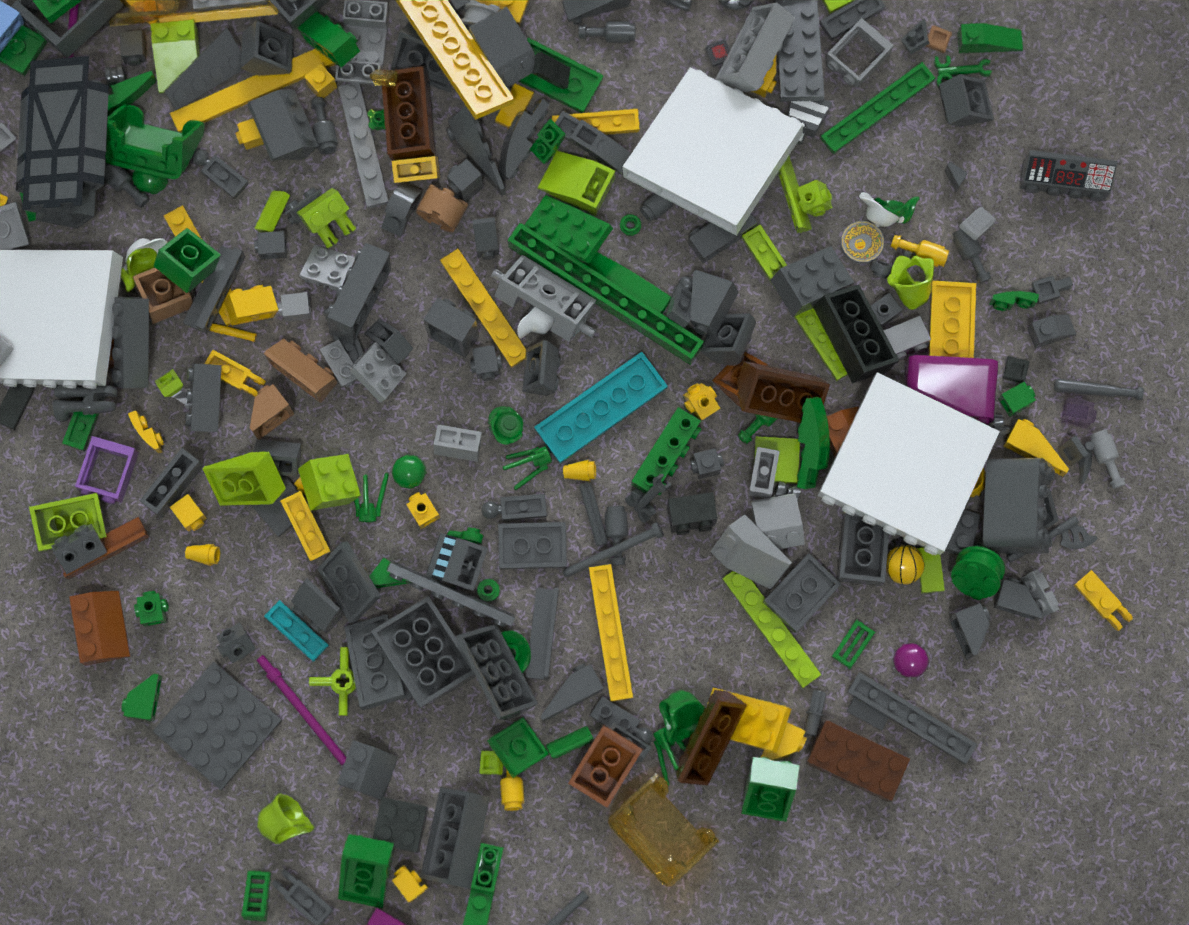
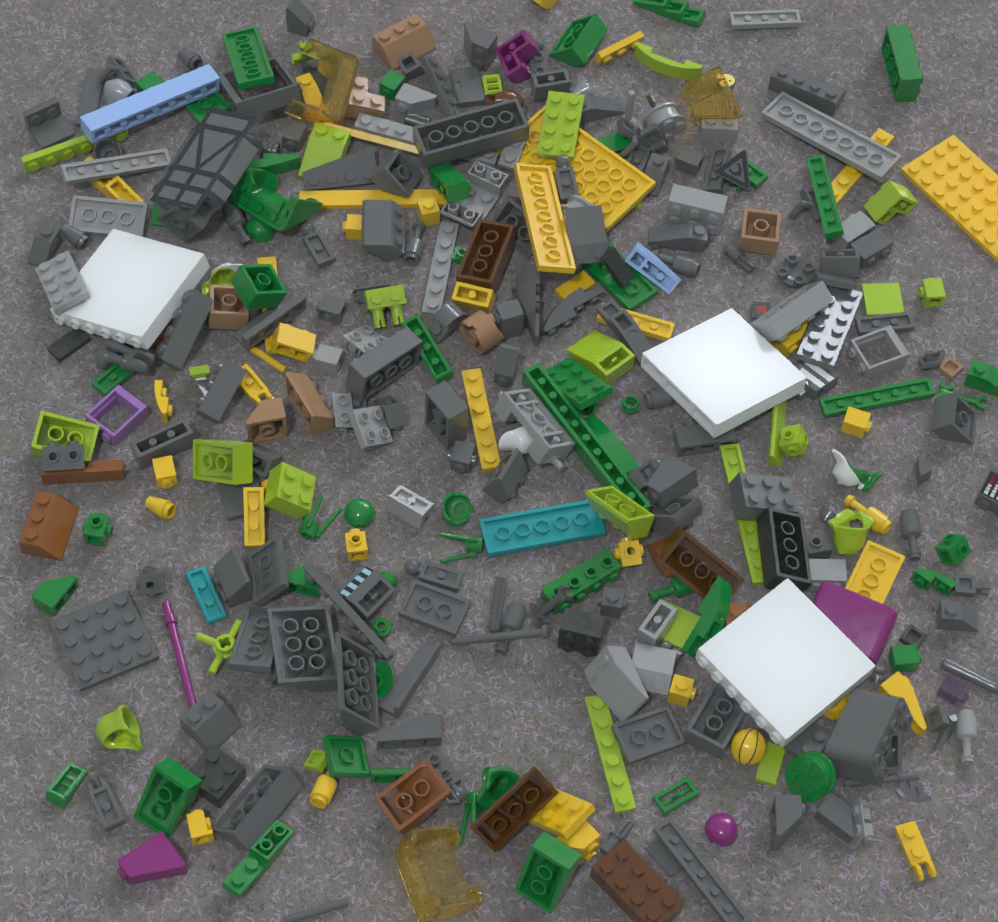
camera: 20 degrees right, 20 degrees down
(272, 211) = (345, 285): lime tile -> none
(384, 77) = (479, 221): clear yellow slope -> none
(400, 254) = (430, 352): none -> green brick
(548, 141) = (590, 318): green slope -> none
(581, 470) = (502, 567): yellow cone -> none
(585, 50) = (652, 268): none -> light blue slope
(610, 633) = (468, 701): yellow plate -> none
(678, 362) = (620, 511): none -> lime slope
(816, 531) = (681, 691): none -> yellow brick
(862, 242) = (820, 490): tile -> none
(869, 147) = (856, 422): none -> yellow brick
(977, 223) = (925, 511): light grey slope -> none
(1020, 255) = (953, 549): none -> green brick

